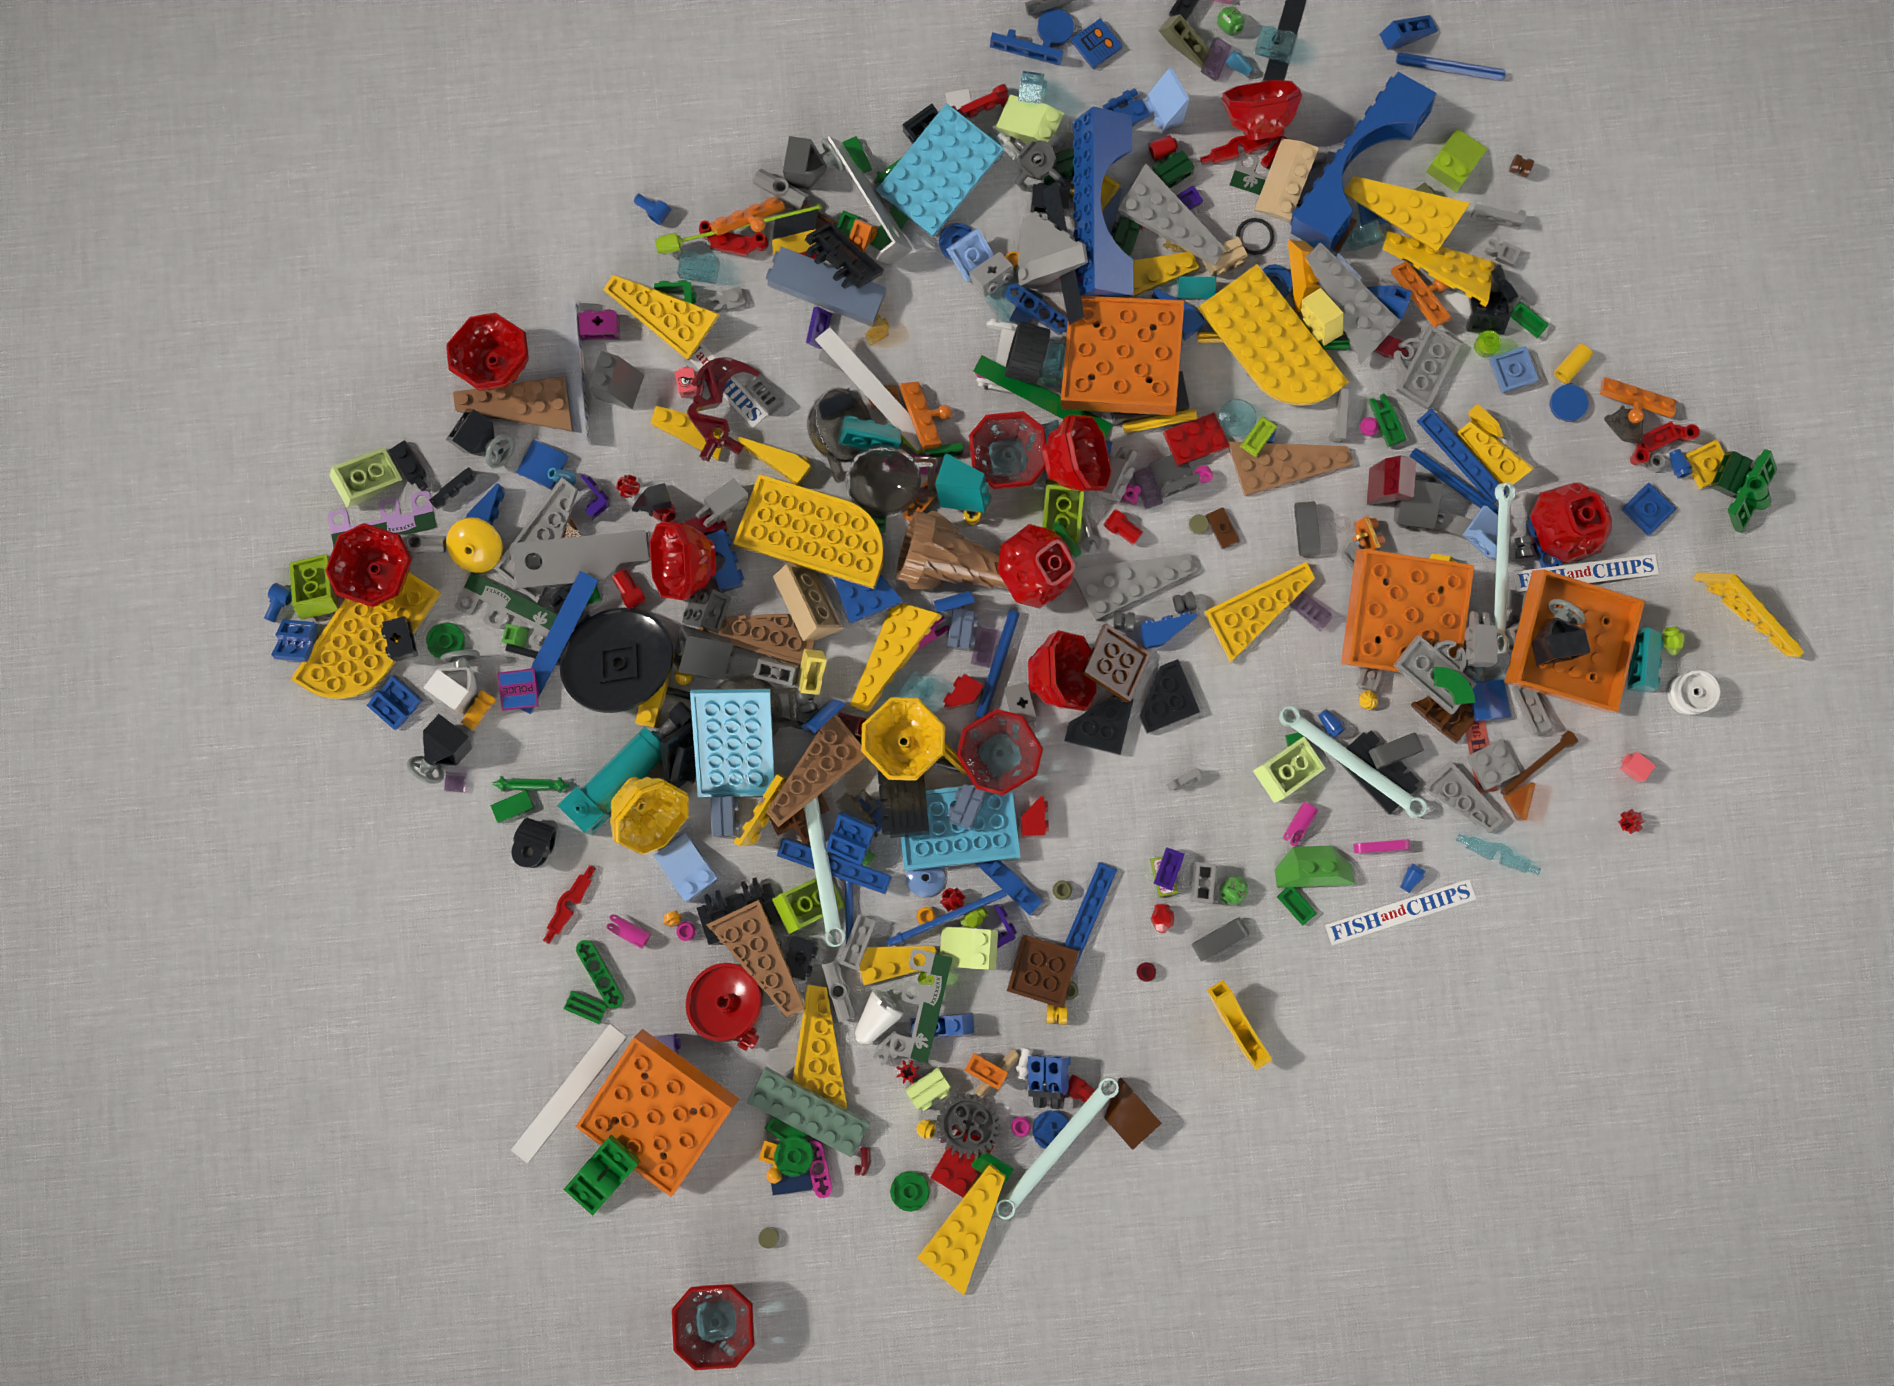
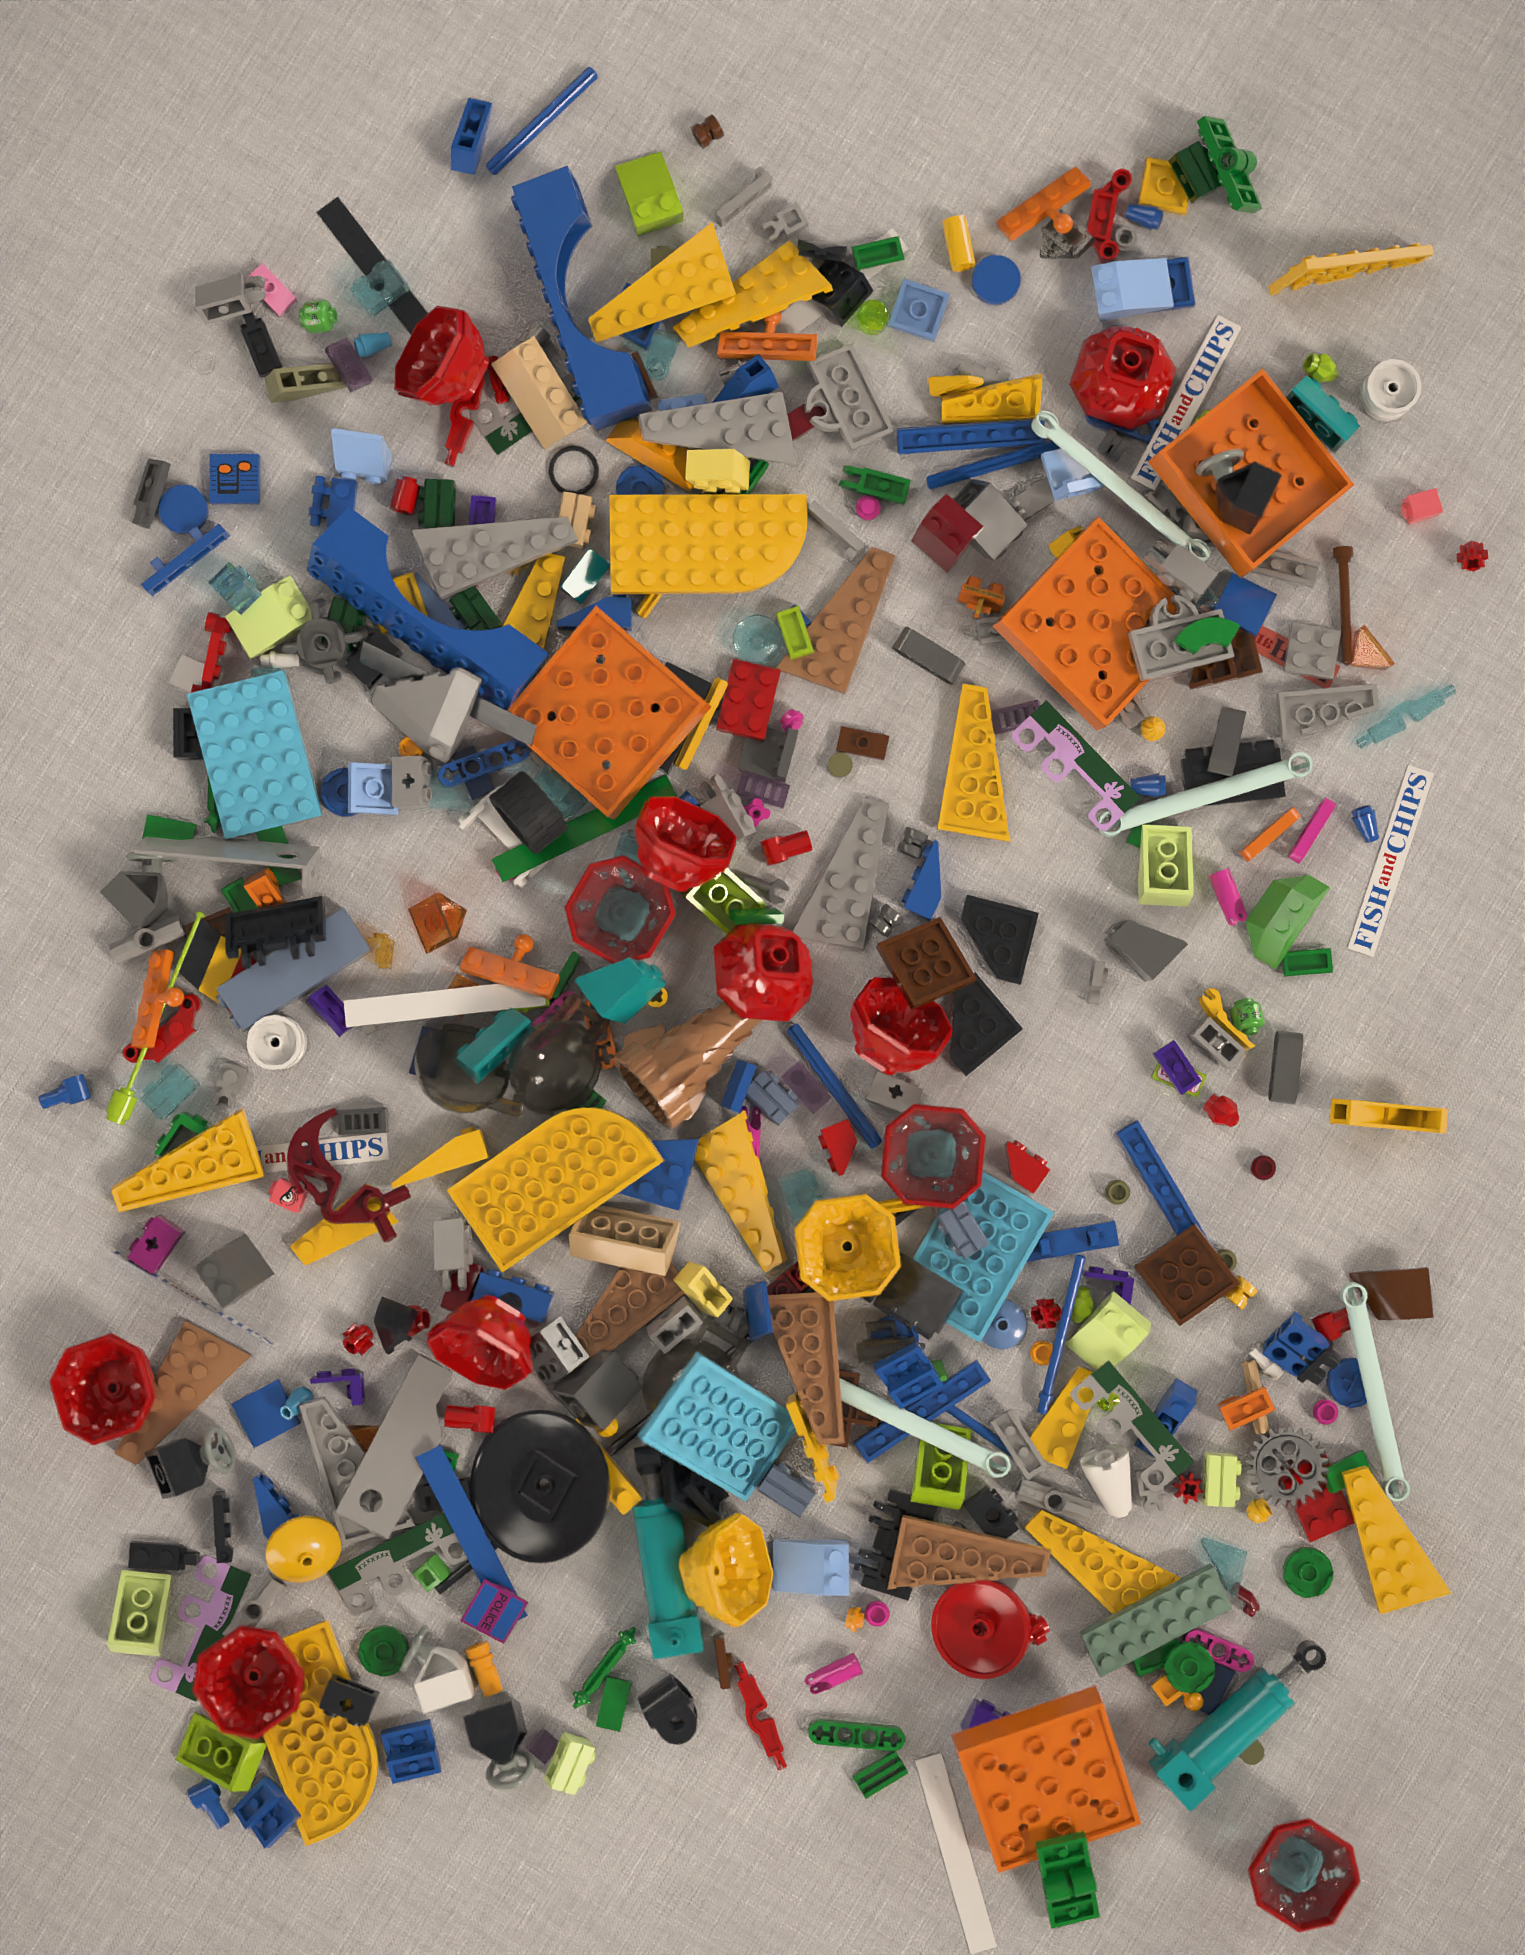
camera: 60 degrees left, 5 degrees up
(455, 805) = (569, 1763): none -> yellowish green brick
(587, 854) = (724, 1661): none -> reddish brown plate
(772, 1211) = (1230, 1729): none -> teal piece
(774, 307) = (263, 1036): none -> white wheel
(878, 1133) = (1228, 1563): none -> clear light blue tile
(920, 349) = (437, 921): none -> clear orange slope
(1222, 867) = (1214, 1010): none -> yellow arm
(1228, 791) = (1143, 948): none -> dark grey slope
(1317, 664) = (1078, 754): none -> piece
(1359, 821) = (1270, 834): none -> orange beam
(1629, 486) = (1131, 287): none -> light blue slope

